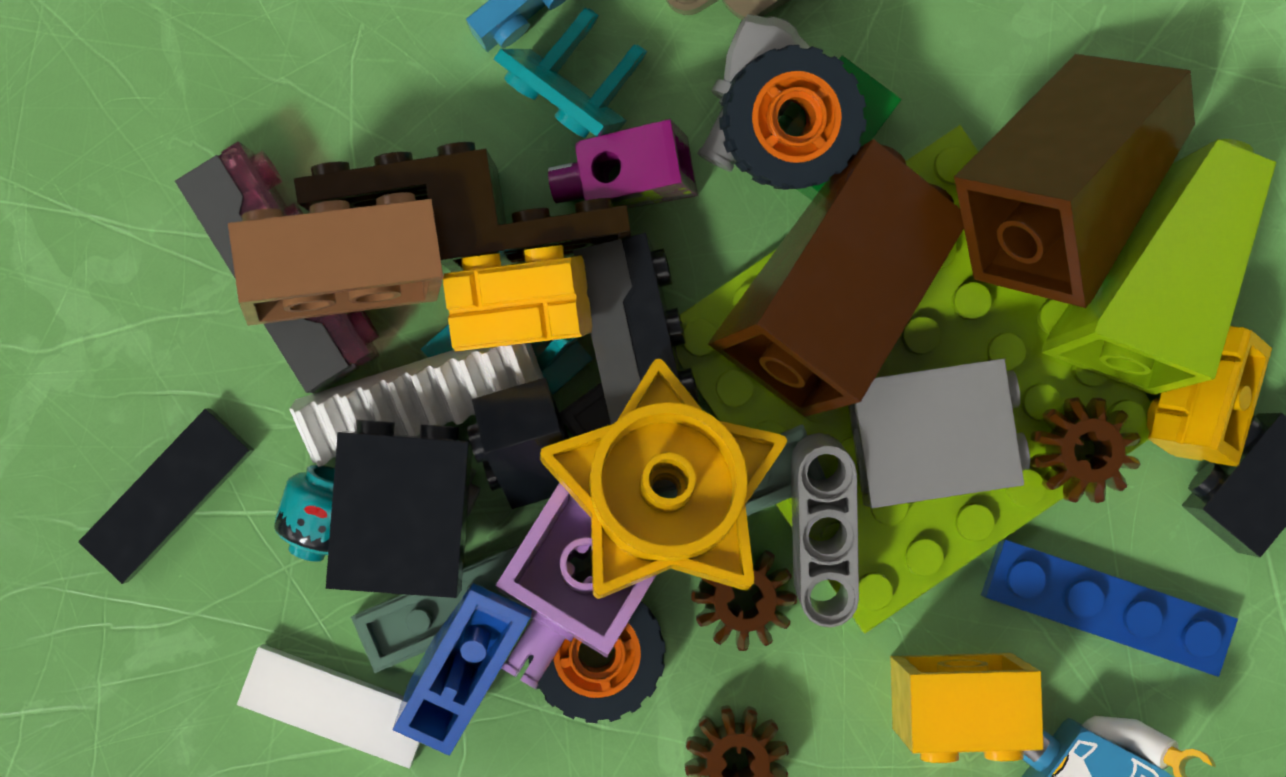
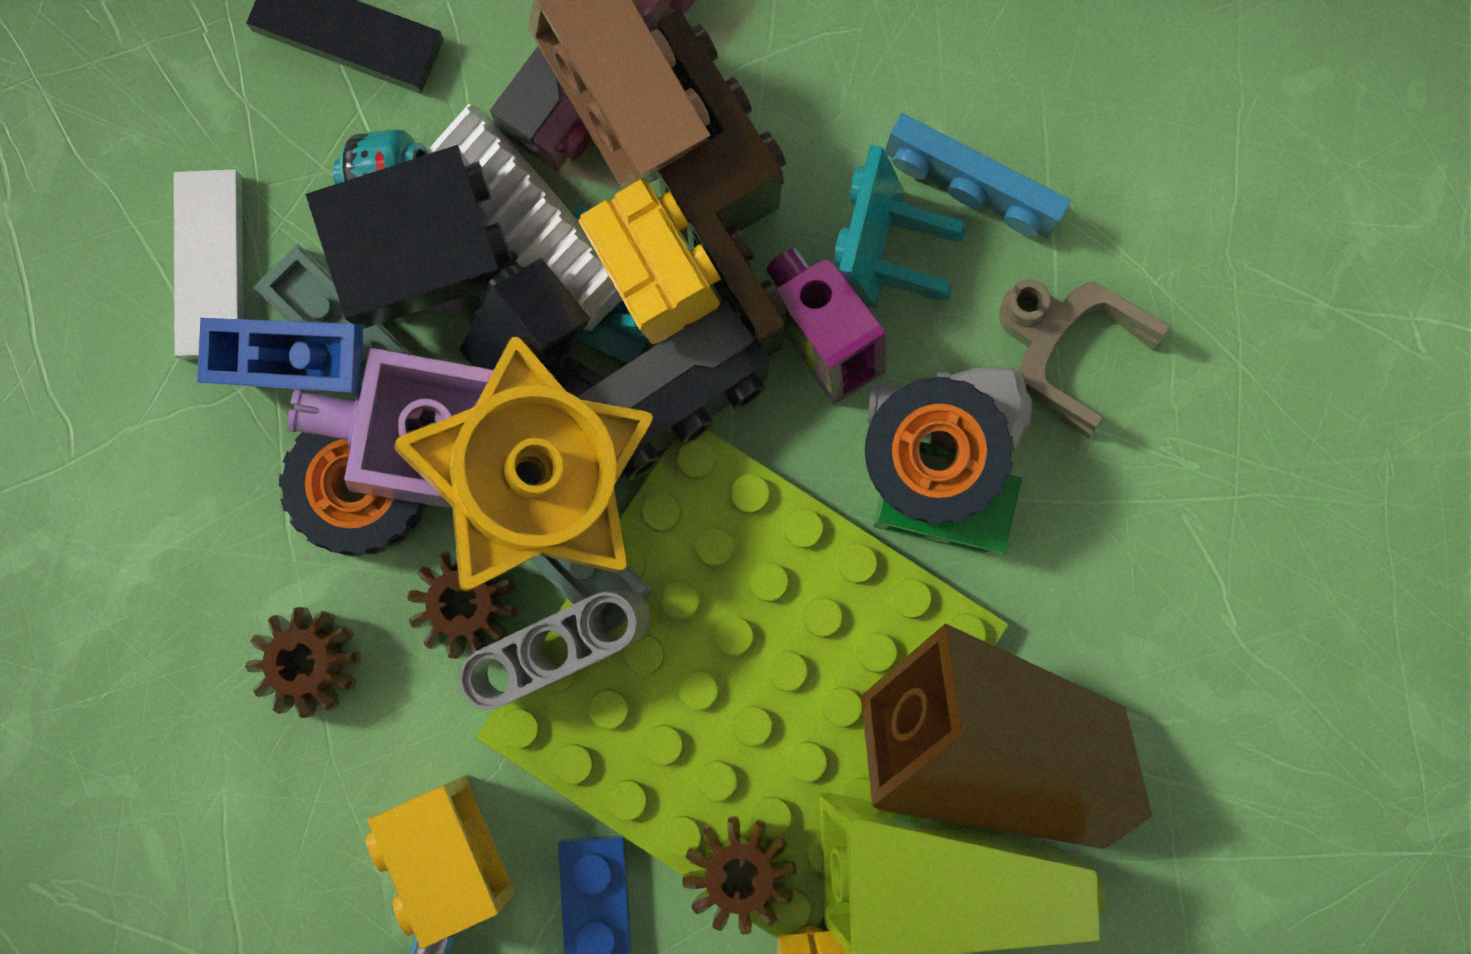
camera: 65 degrees right, 5 degrees down
(842, 283) = (803, 565): reddish brown slope -> none
(939, 434) = (695, 721): light grey brick -> none

